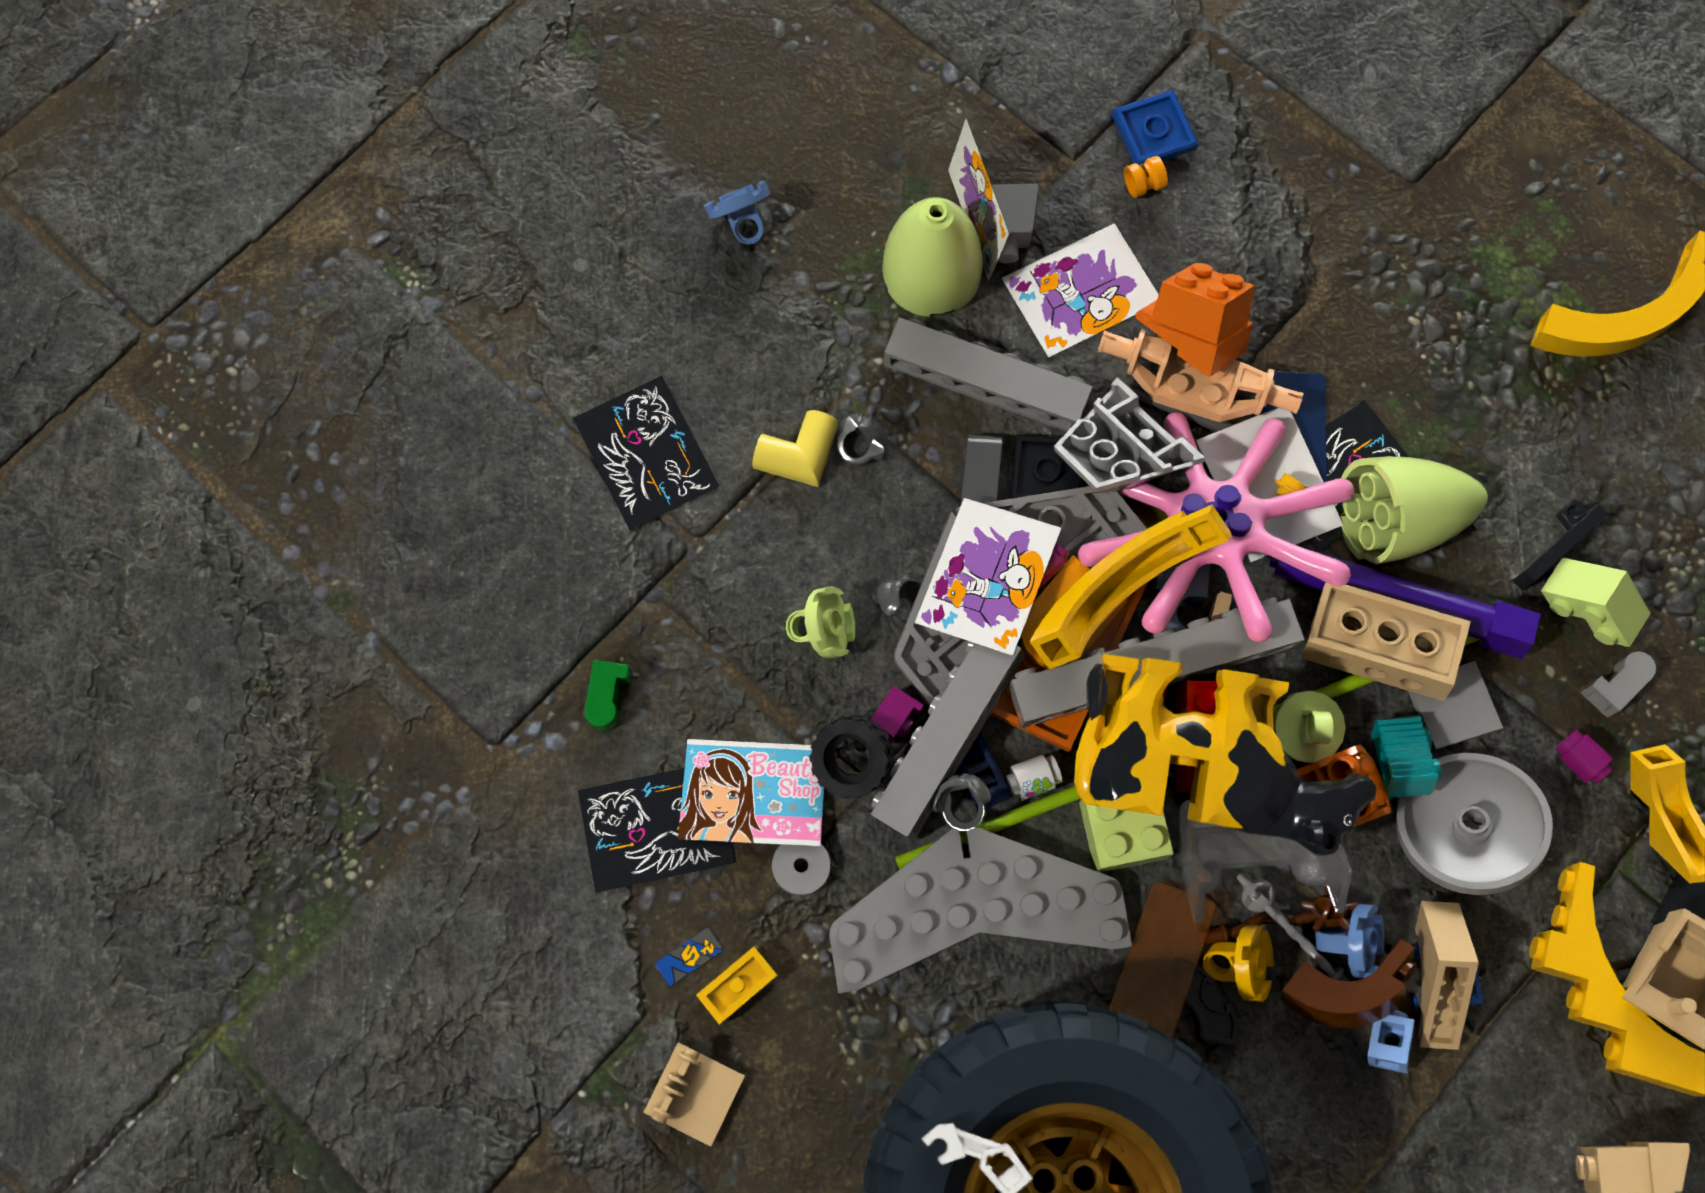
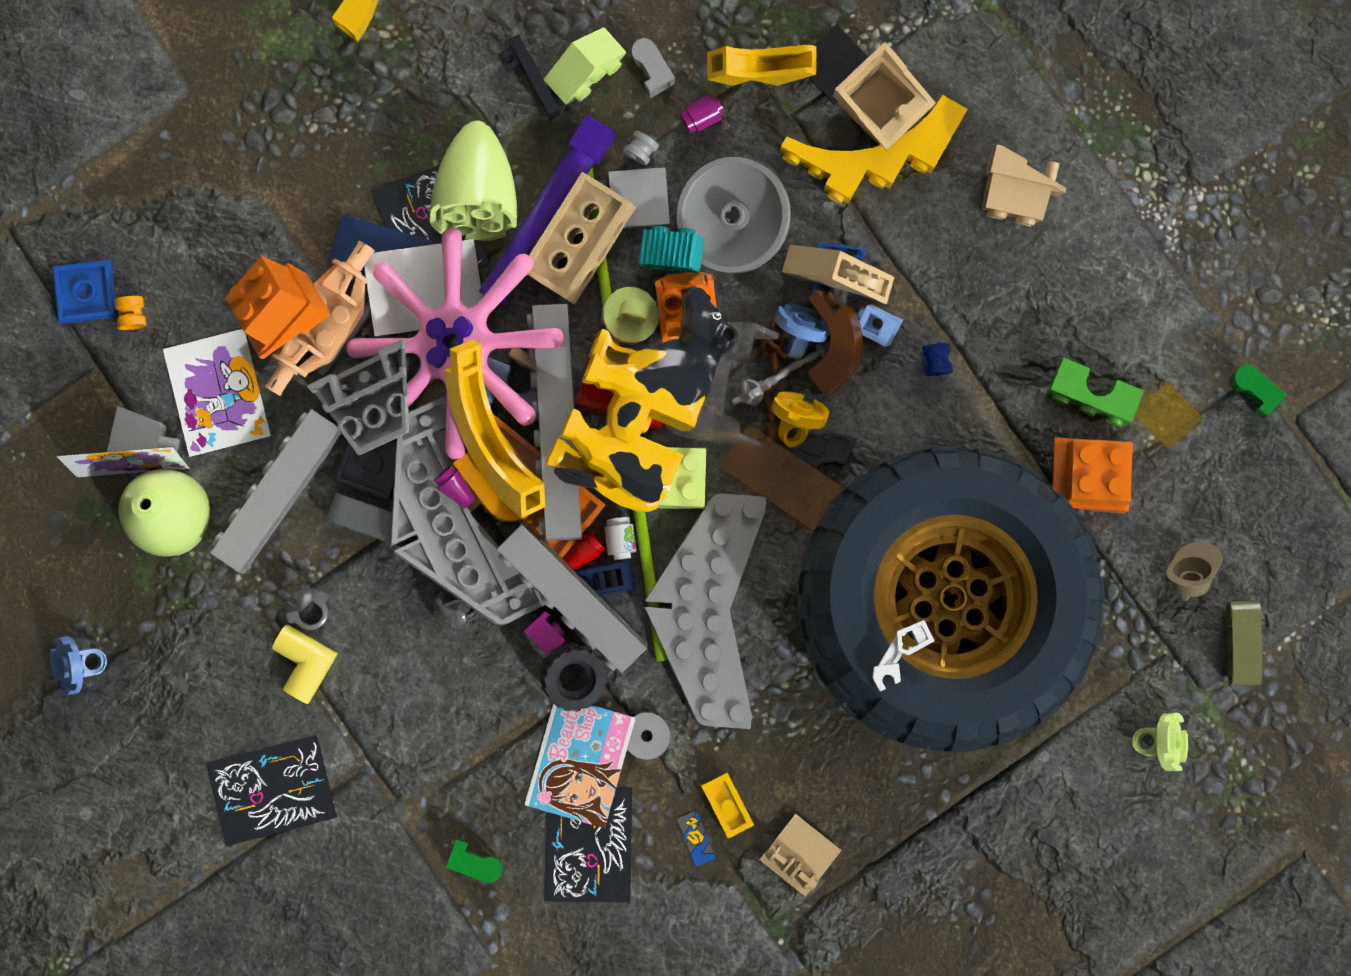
camera: 85 degrees left, 10 degrees up
(827, 623) = (459, 671): yellowish green tile -> none
(944, 799) = (624, 613): dark grey piece -> none
(988, 576) = (455, 535): sticker -> none
(1008, 738) = (584, 550): none -> red cone
(1288, 484) = (434, 273): yellow plate -> none
(1370, 1131) = (937, 359): none -> clear blue wheel
(1517, 692) = (640, 148): none -> light grey wheel

